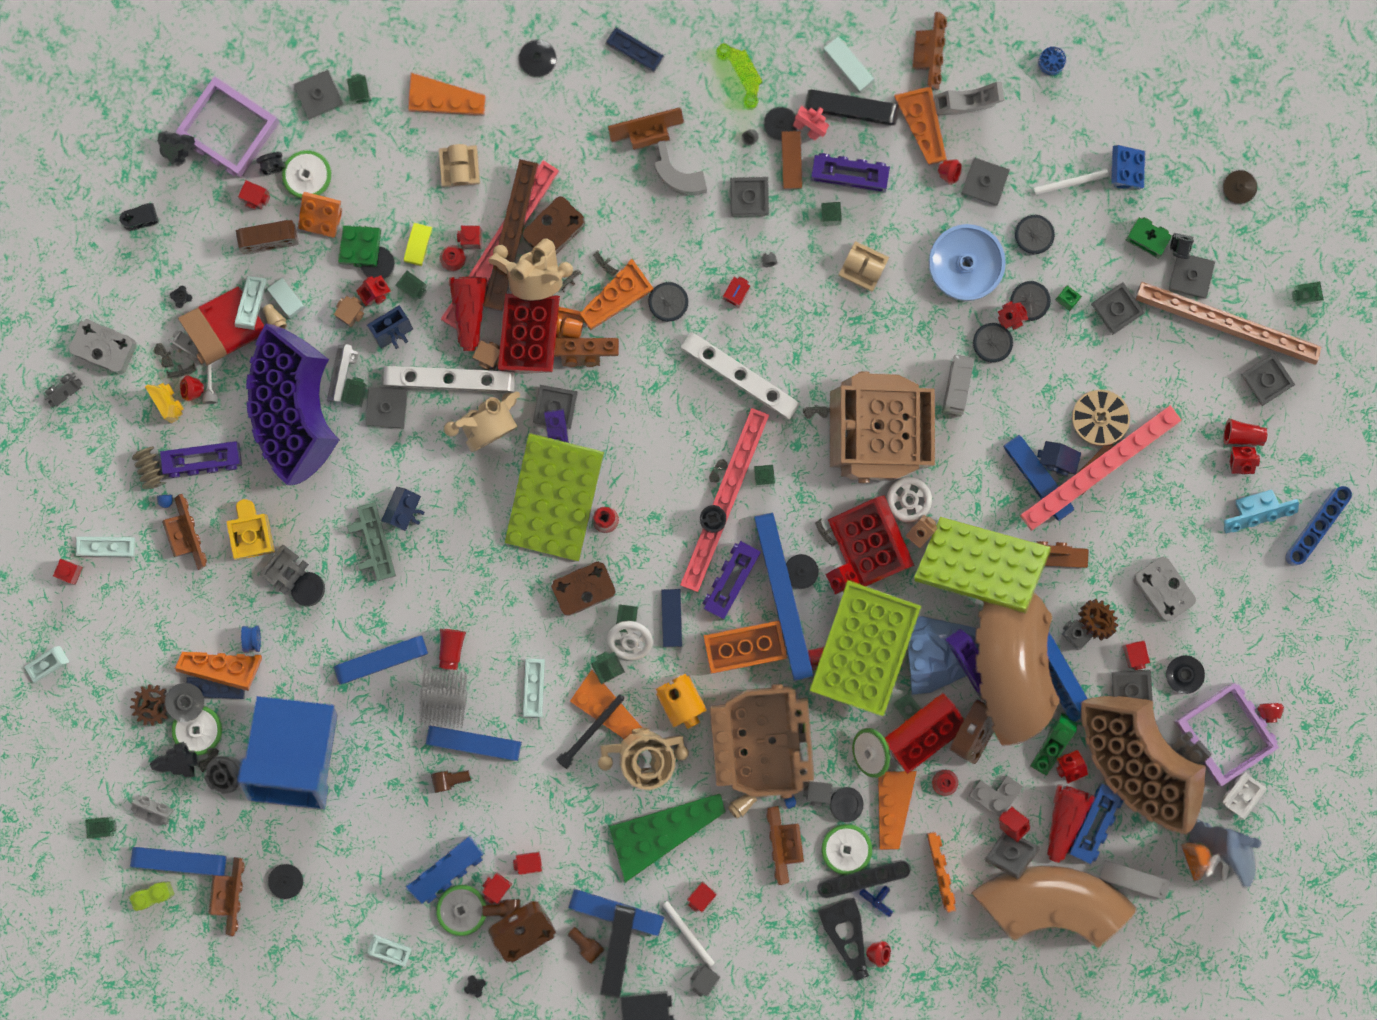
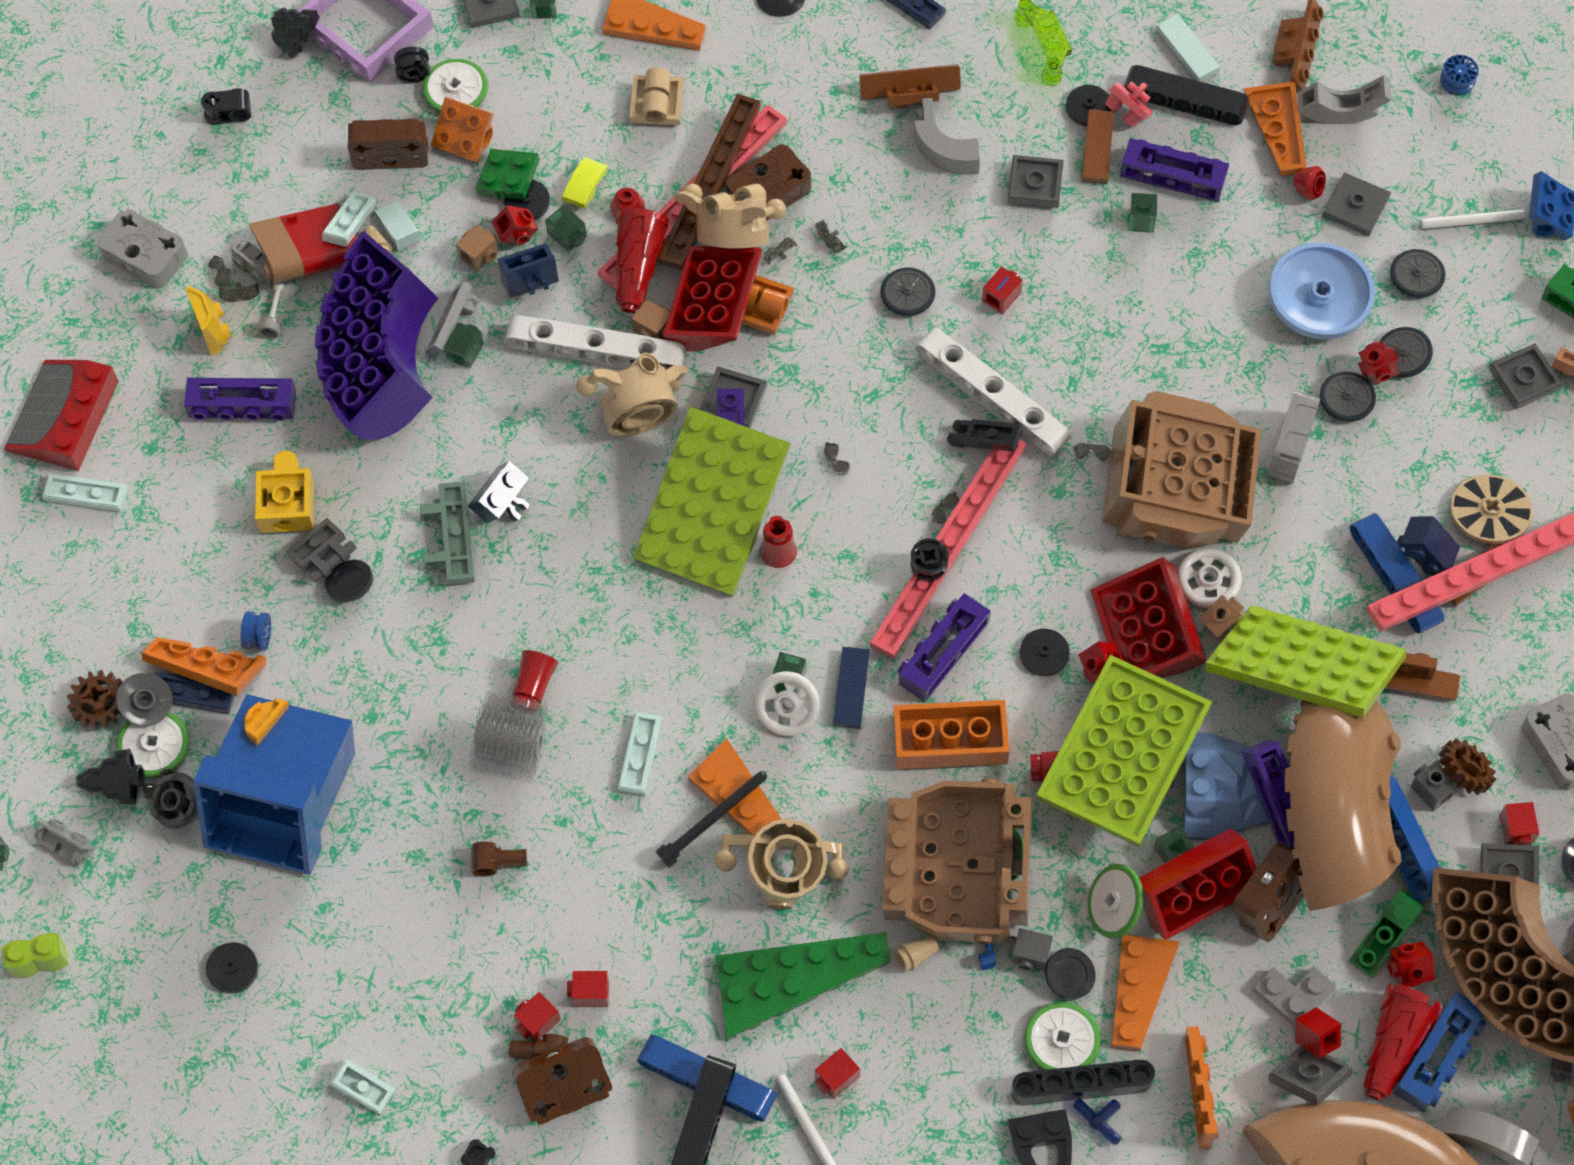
camera: 10 degrees right, 20 degrees down
(67, 571) = (26, 512): red brick -> none
(68, 384) = (84, 287): dark grey hinge -> none
(74, 487) = (63, 412): none -> red slope
(147, 468) = (167, 400): dark tan piece -> none
(165, 500) = (179, 444): blue hinge -> none
(178, 861) = (84, 914): blue beam -> none
(180, 291) = (256, 199): black plate -> none
(182, 534) = (192, 488): dark orange bracket -> none
(191, 388) = (247, 311): red cone -> none
(225, 896) = (140, 971): dark orange bracket -> none
(254, 195) = (381, 98): red brick -> none
(272, 715) = (262, 718): none -> light orange tile
(380, 660) = (430, 684): blue beam -> none
(386, 407) = (504, 371): dark grey plate -> none
(445, 870) = (465, 981): blue wedge -> none
(449, 916) = (472, 1026): light grey wheel -> none
(470, 237) = (655, 180): red brick -> none
(473, 743) = (540, 812): blue beam -> none
(581, 583) = (730, 622): reddish brown axle -> none
(585, 350) = (783, 333): dark orange bracket -> none
(589, 948) = (657, 1124): reddish brown pin -> none
(607, 667) = (749, 736): clear green brick -> none
(617, 295) = (848, 270): orange wing -> none
(631, 438) = (831, 451): none -> clear smoke piece
(682, 708) = (848, 792): light orange cylinder -> none
(741, 414) = (985, 434): none -> black hinge
(750, 137) = (1043, 116): dark grey hinge -> none
(764, 476) = (1008, 518): clear green brick -> none
(769, 260) = (1052, 264): dark grey hinge -> none
(783, 596) = (1015, 675): blue beam -> none
(785, 843) = (973, 1016): dark orange bracket -> none
(824, 534) = (1085, 609): clear smoke piece -> none
(863, 266) = (1178, 281): tan plate -> none
(943, 776) = (1224, 969): red cone -> none
(1068, 298) = (1457, 354): green tile -> none

